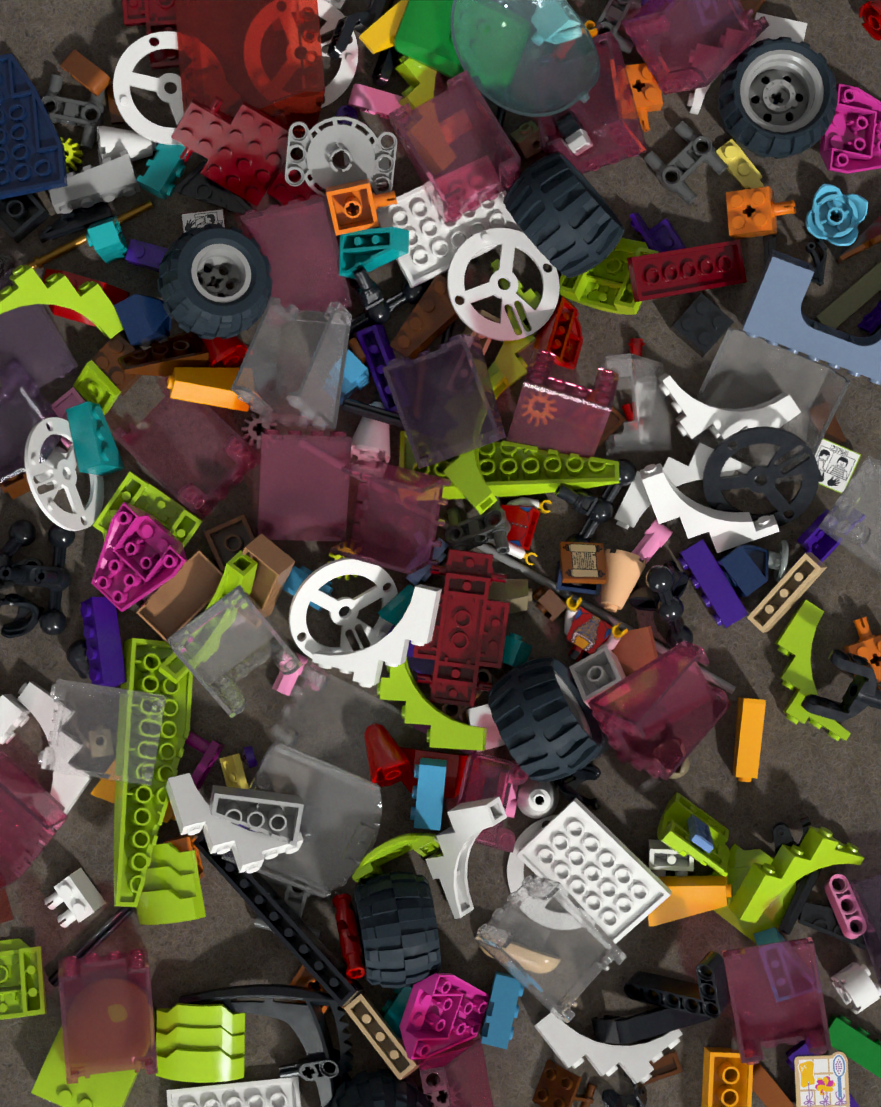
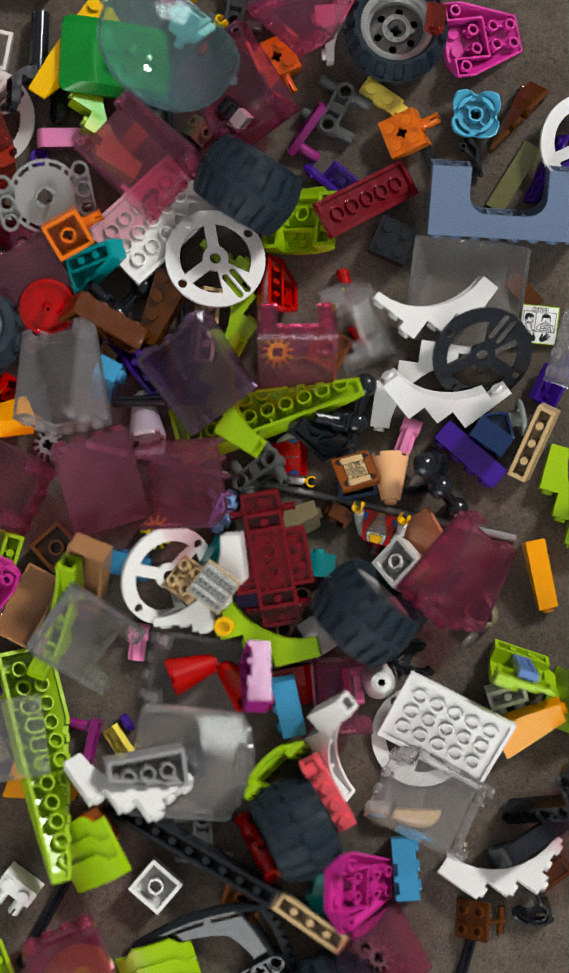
camera: 20 degrees left, 0 degrees up
(226, 942) = (156, 885): none -> white brick
(305, 278) = (42, 305): none -> red piece
(335, 722) = (189, 671): none -> red cone
(364, 622) = (182, 578): none -> tan tile
(367, 319) = (109, 323): none -> reddish brown wedge
(388, 685) = (224, 626): none -> yellow tile
(390, 639) = (213, 586): none -> light grey tile
(406, 750) = (256, 676): none -> wedge
(444, 900) = (328, 791): none -> coral hinge
(555, 516) = (319, 439): none -> black wing
(631, 187) = (297, 144): none -> magenta piece
(825, 98) = (435, 18): none -> clear red brick

